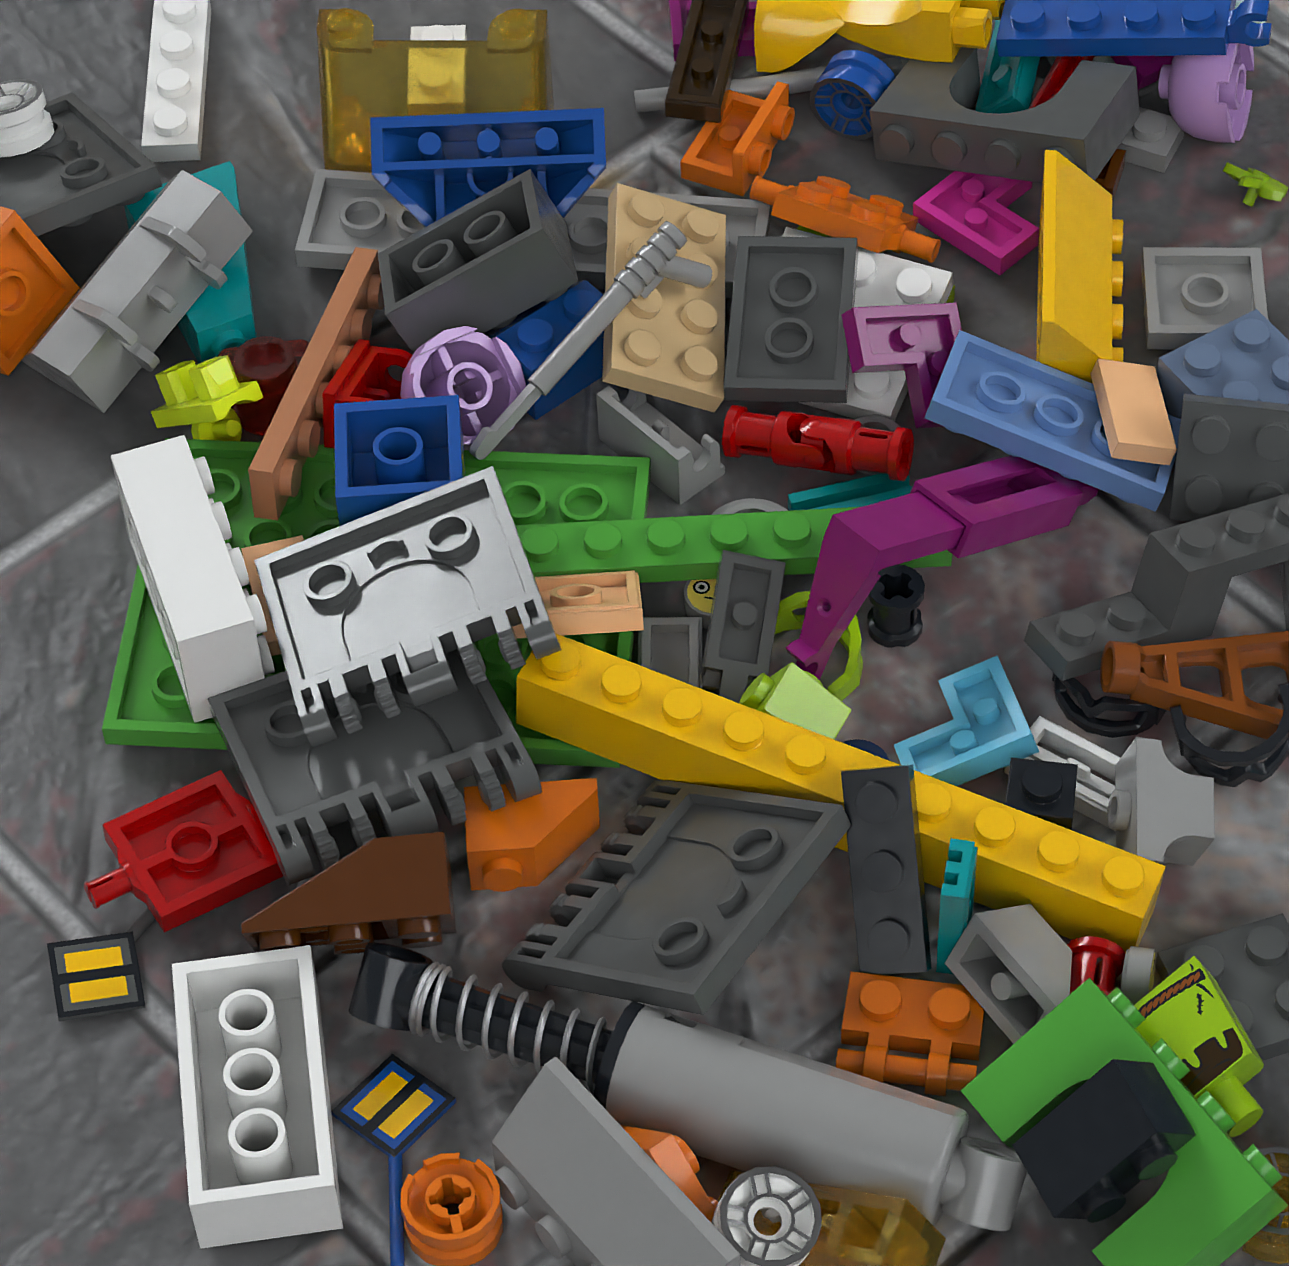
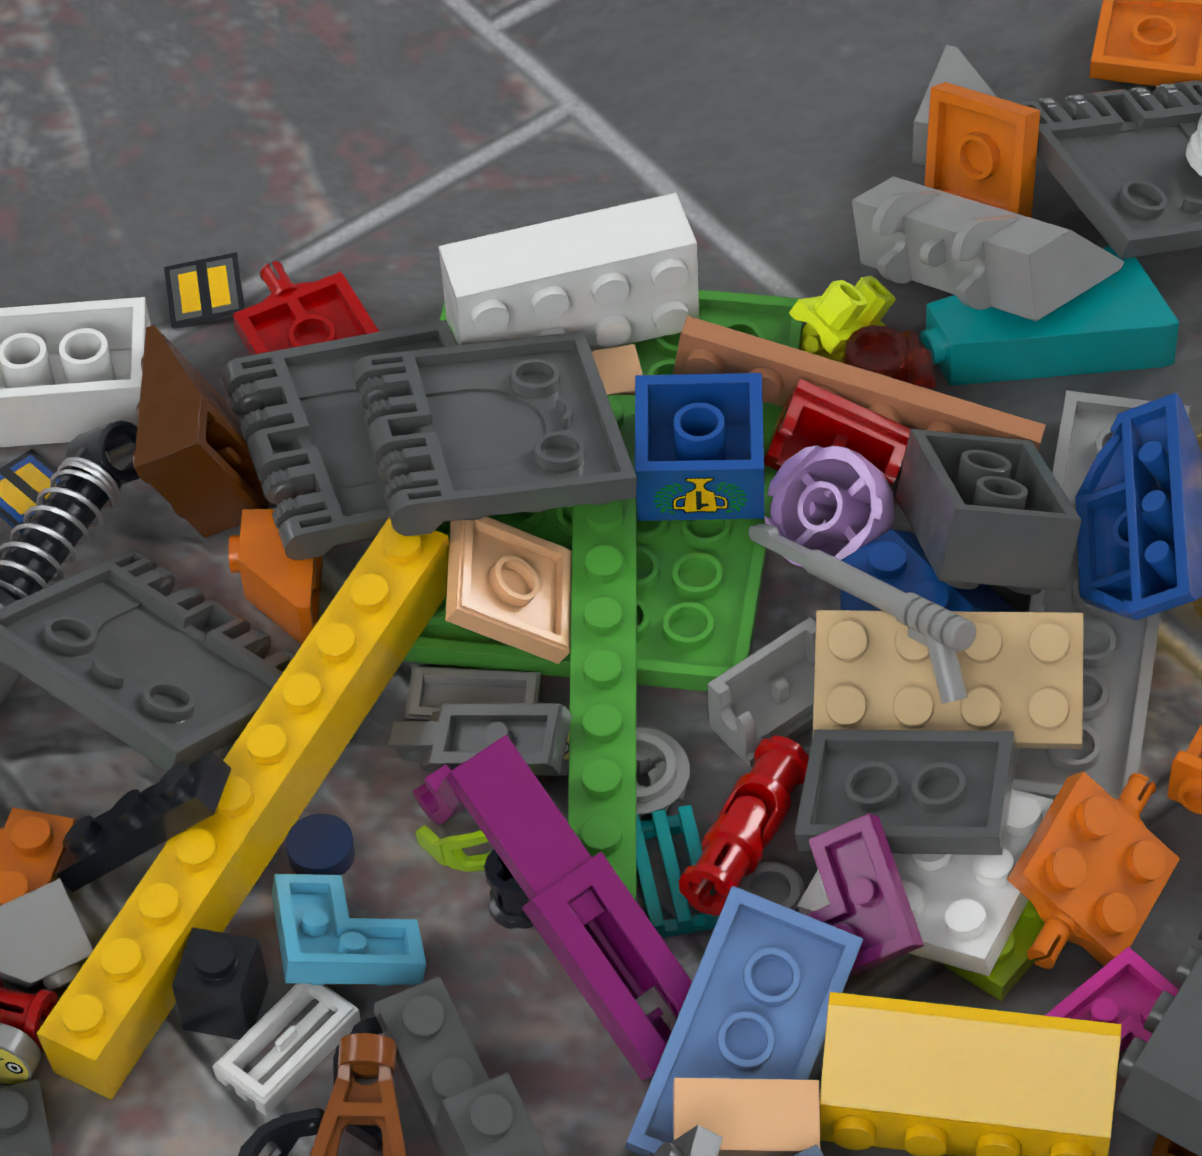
camera: 95 degrees right, 0 degrees up
(798, 699) = (368, 774): lime brick -> none
(956, 898) = (107, 873): teal tile -> none
(1159, 807) = (189, 1083): light grey brick -> none

